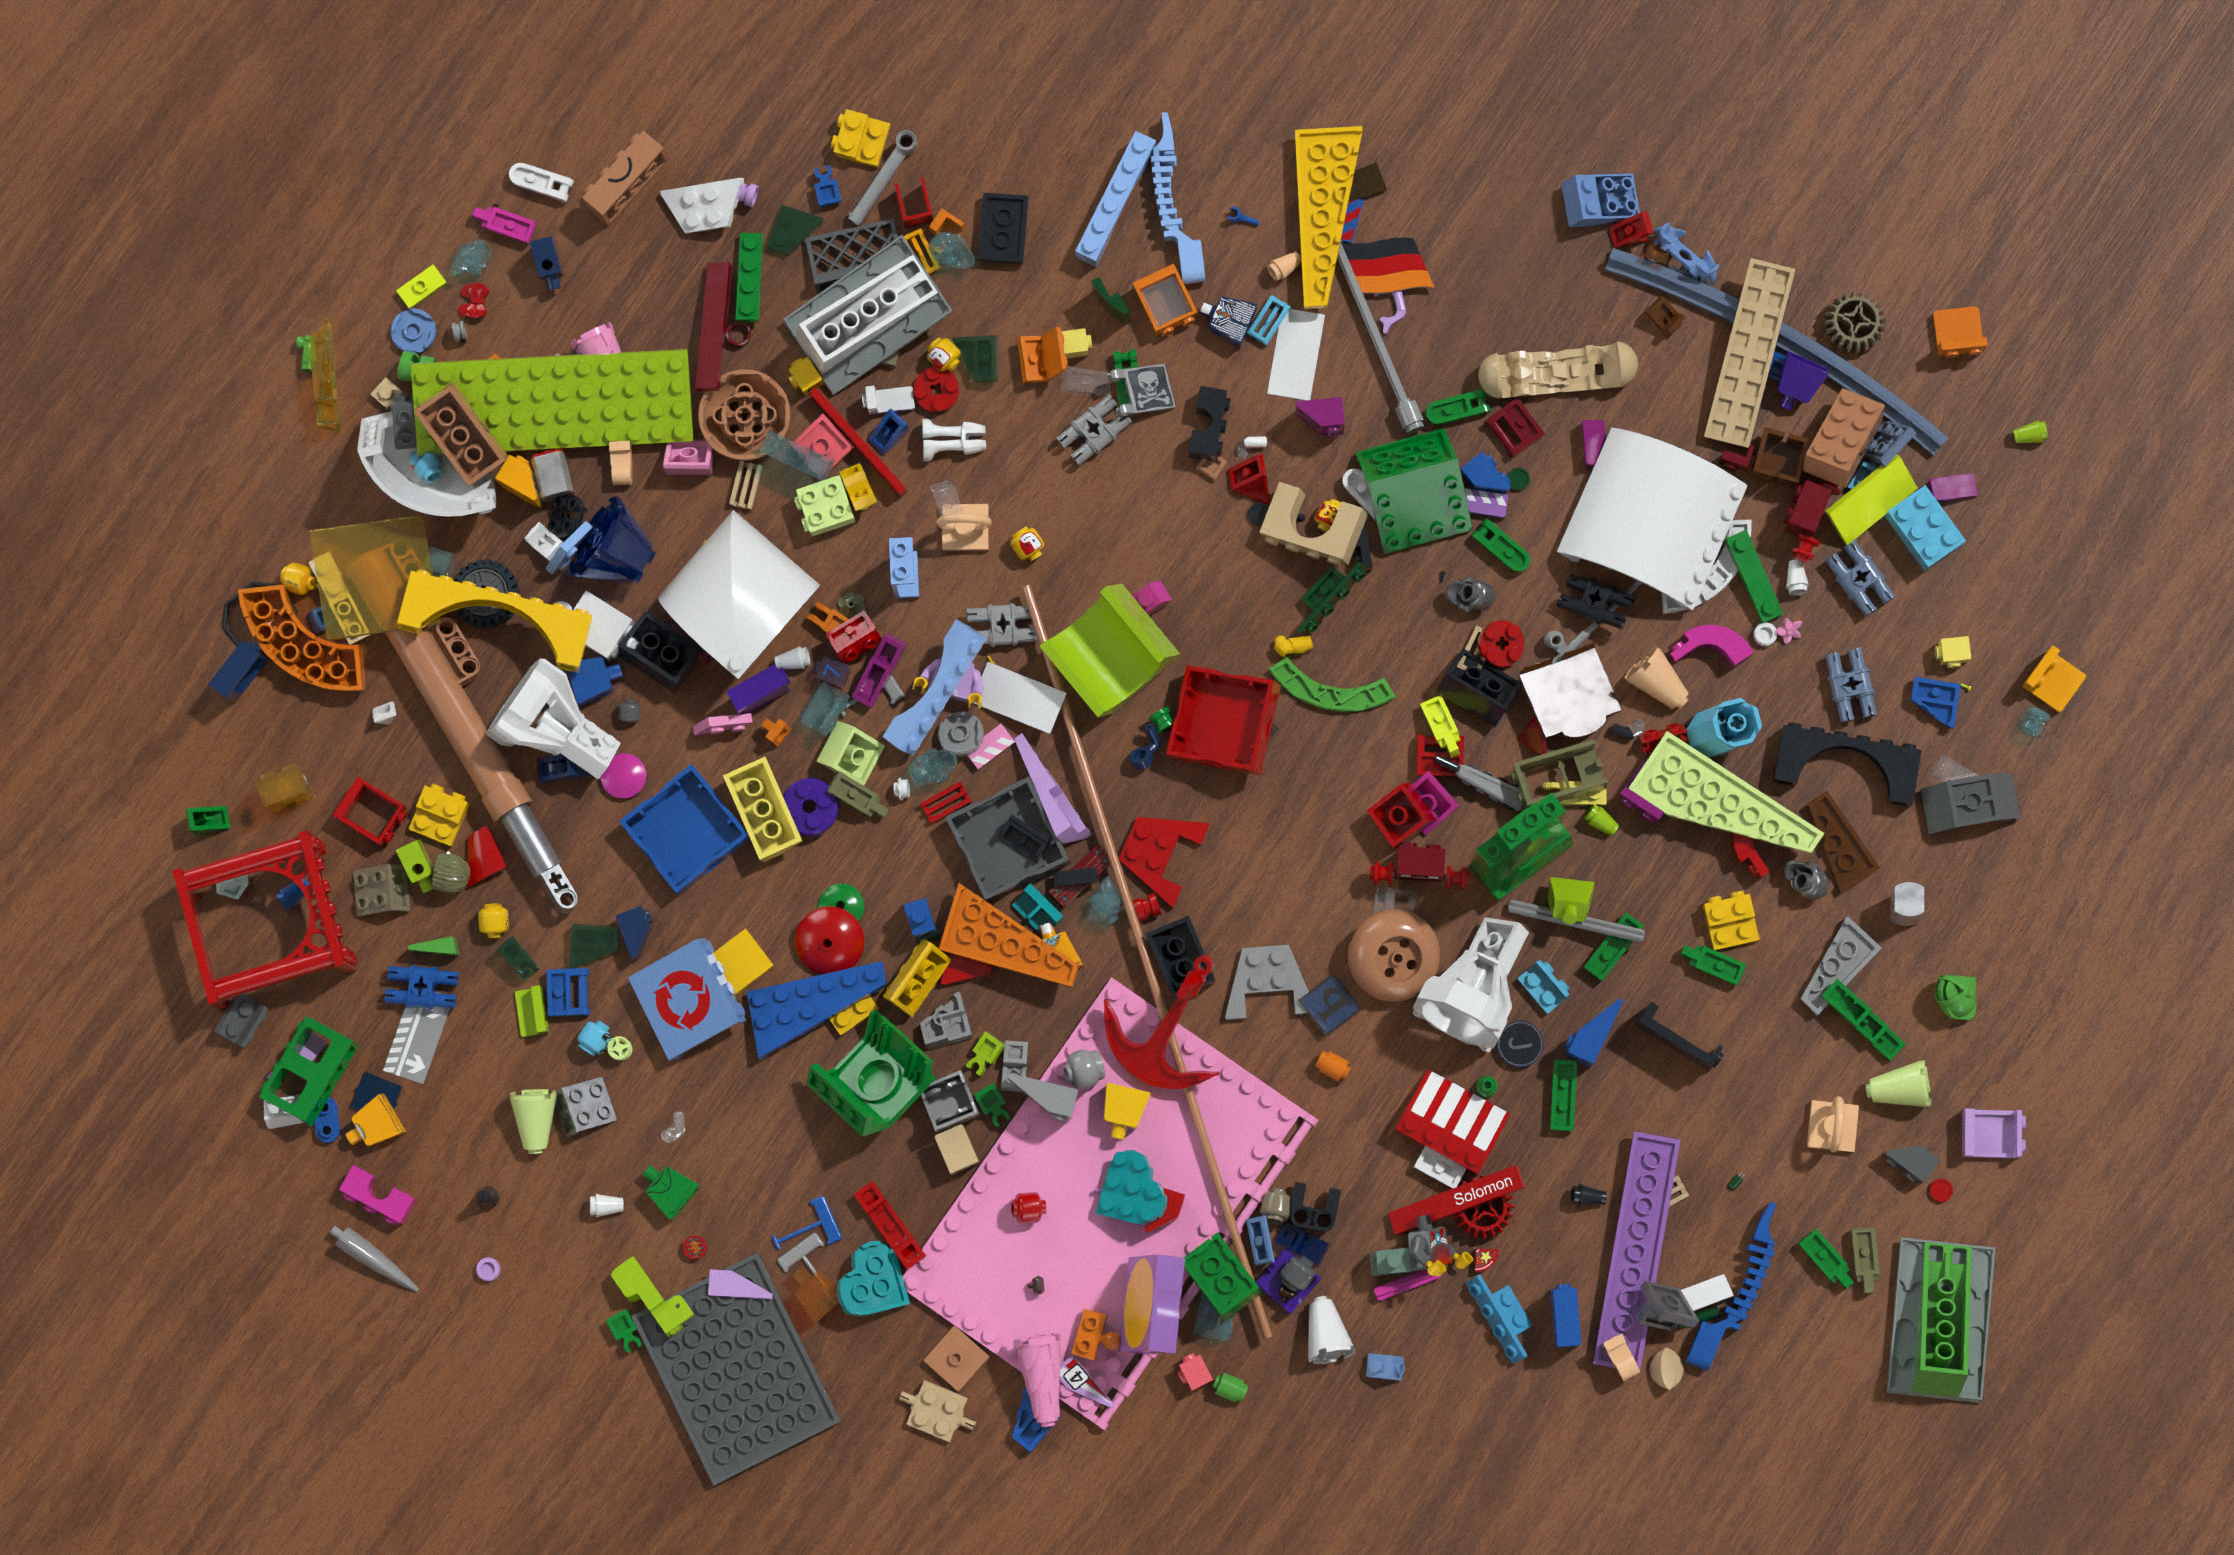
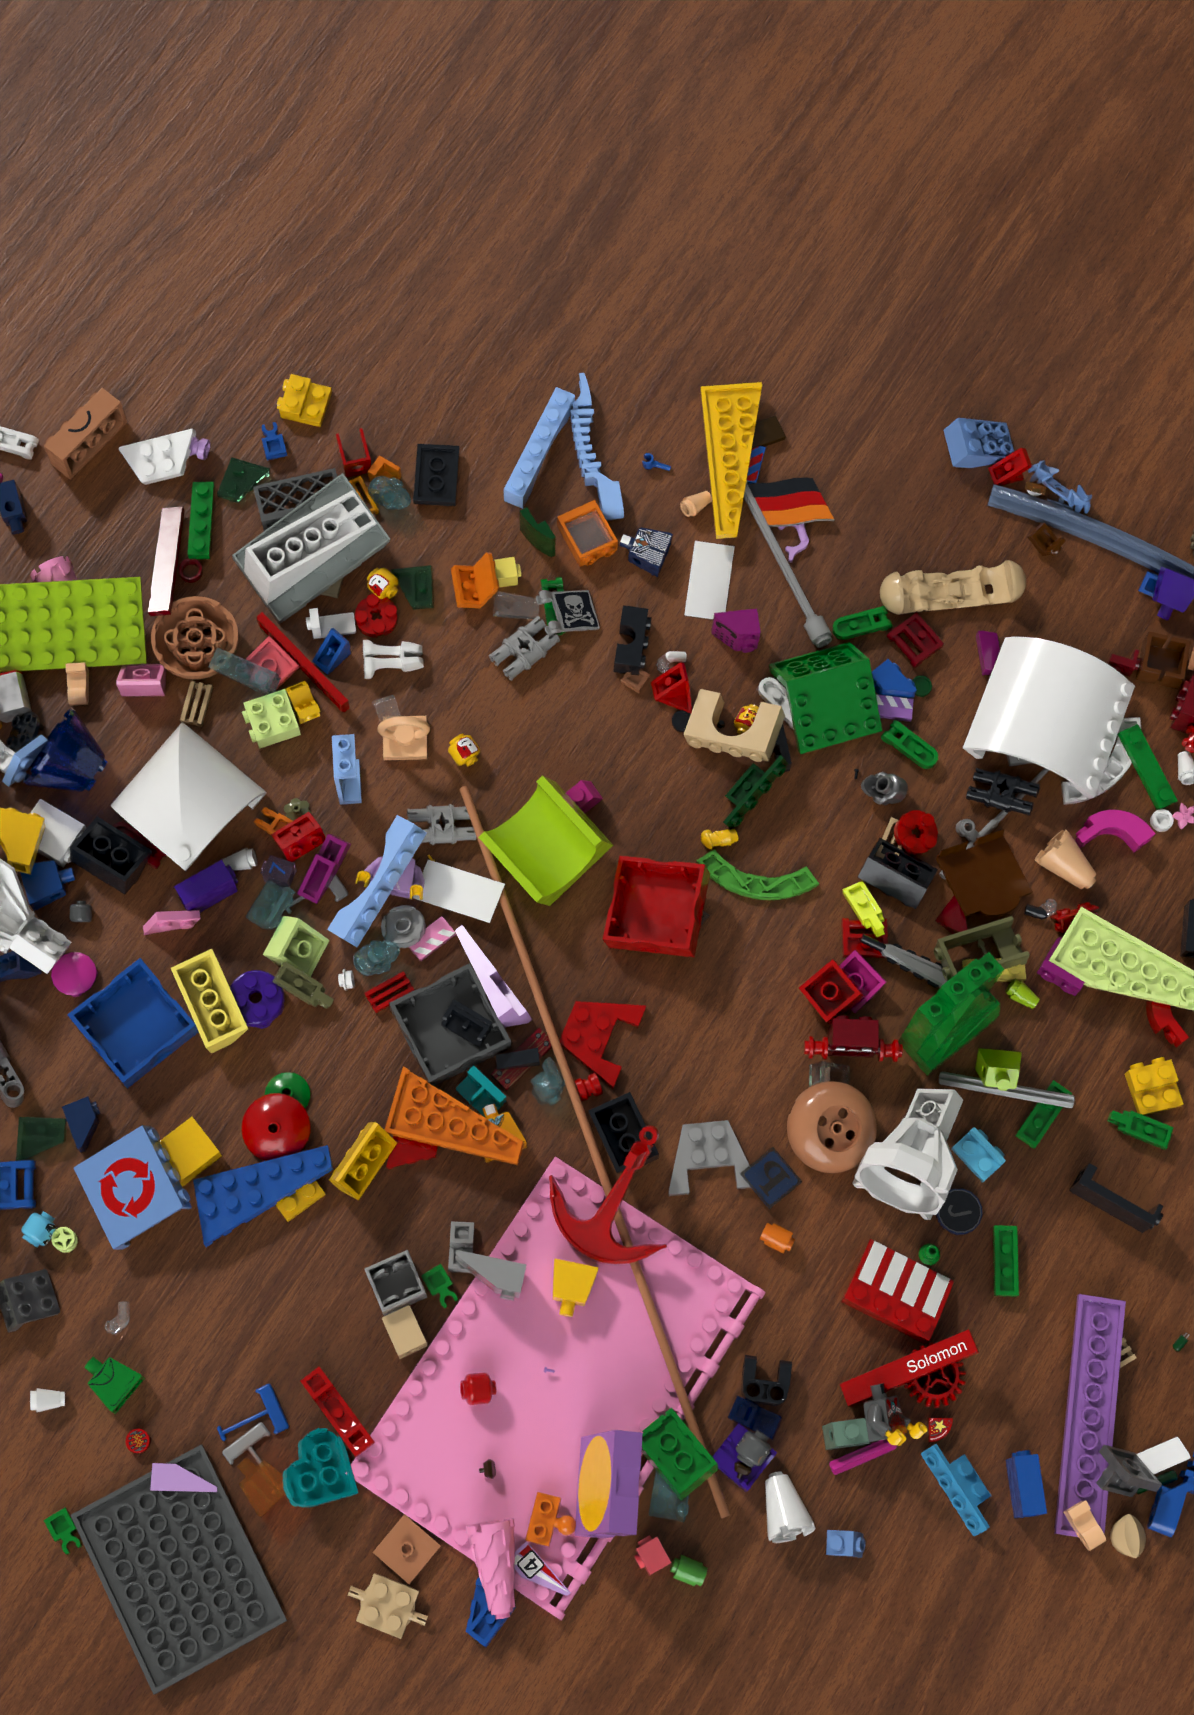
camera: 15 degrees left, 10 degrees down
(637, 1285) = (77, 1482): lime piece -> none
(776, 731) = (224, 927): orange tile -> none
(804, 376) = (252, 604): yellow brick -> none
(875, 1078) = (321, 1261): green panel -> none
(883, 177) = (326, 431): light grey piece -> none
(921, 920) = (366, 1104): blue torso -> none
(947, 1024) = (393, 1207): light grey slope -> none
(987, 1050) = (433, 1232): lime plate -> none
(1084, 1069) = (531, 1245): light grey piece -> none
(1130, 1190) = (581, 1369): teal plate -> none
(1142, 757) = (580, 944): dark blue plate -> none
(1162, 720) = (596, 909): green wheel -> none
(1171, 1213) = (616, 1386): red slope -> none
(1258, 336) = (675, 565): medium azure tile -> none
(1260, 1240) = (713, 1416): medium blue slope -> none
(1276, 1206) = (727, 1381): dark tan head -> none
(1439, 1168) = (888, 1337): white plate -> none
(1586, 1196) = (1036, 1361): black cone -> none
(1589, 1040) = (1029, 1205): blue slope -> none
(1724, 728) = (1135, 902): medium azure brick -> none
(1749, 353) = (1127, 569): tan plate -> none

